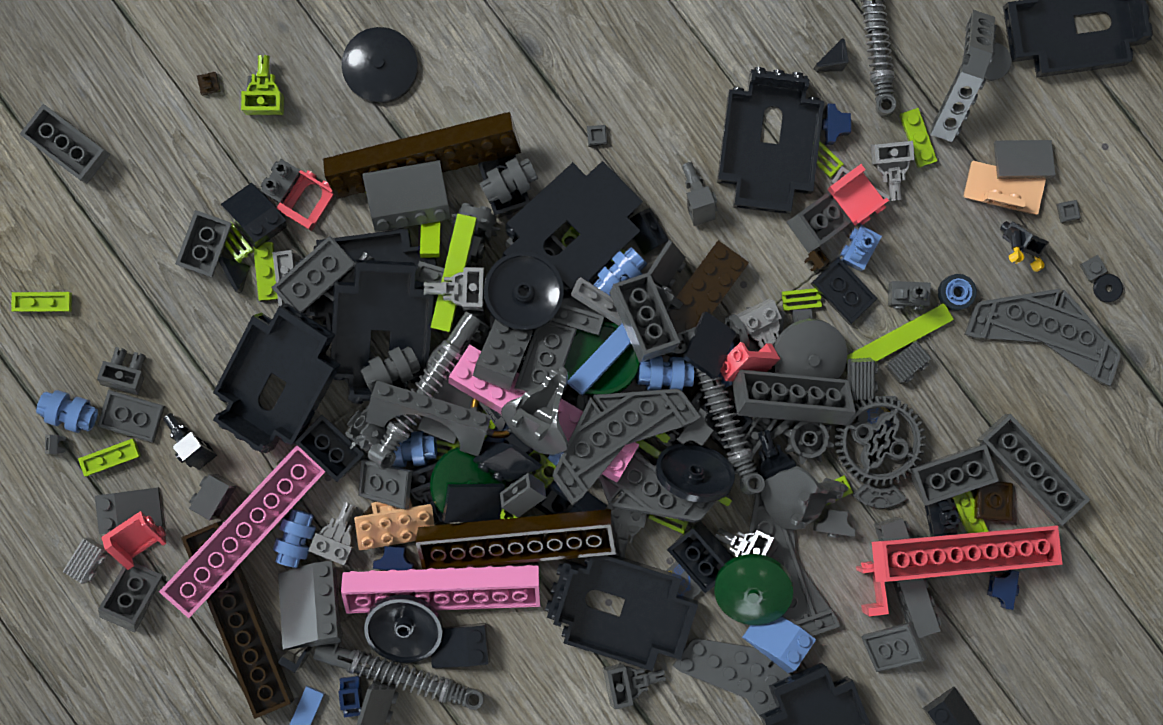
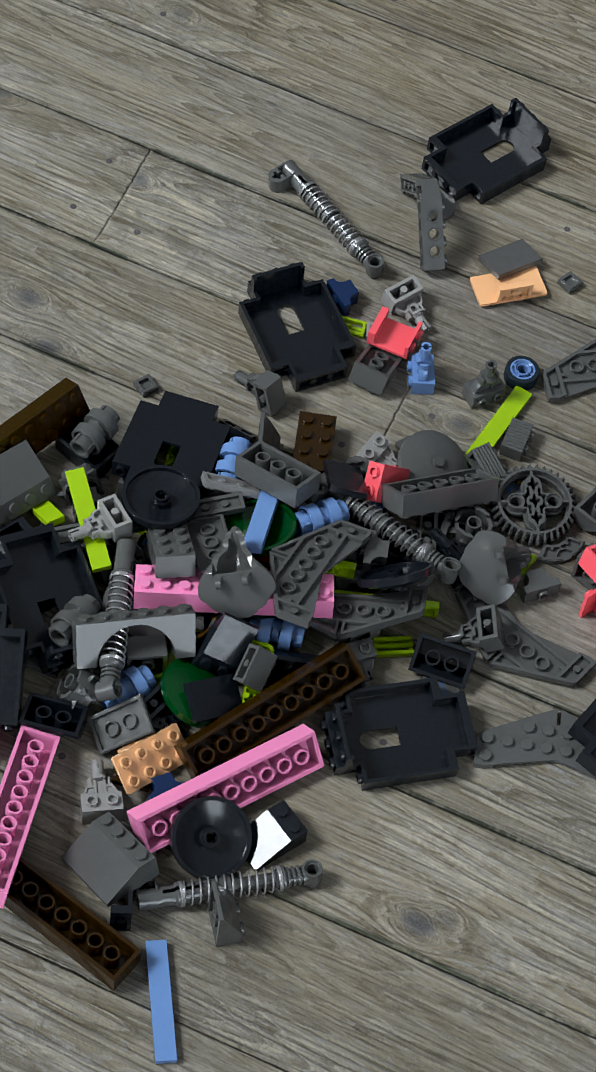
camera: 30 degrees left, 30 degrees down
(292, 544) = (61, 811): medium blue piece -> none
(350, 696) = (195, 927): dark blue brick -> none
(628, 683) = (442, 795): dark grey brick -> none
(753, 589) = (504, 657): dark green dish -> none
(780, 642) = (552, 695): medium blue slope -> none
(797, 307) = (396, 430): lime tile -> none
(818, 258) = (391, 395): dark brown tile -> none
(834, 60) = (312, 249): black slope -> none
(844, 291) = (428, 411): black tile -> none
(917, 132) = (403, 270): lime plate -> none
(1026, 241) = (551, 309): black torso -> none

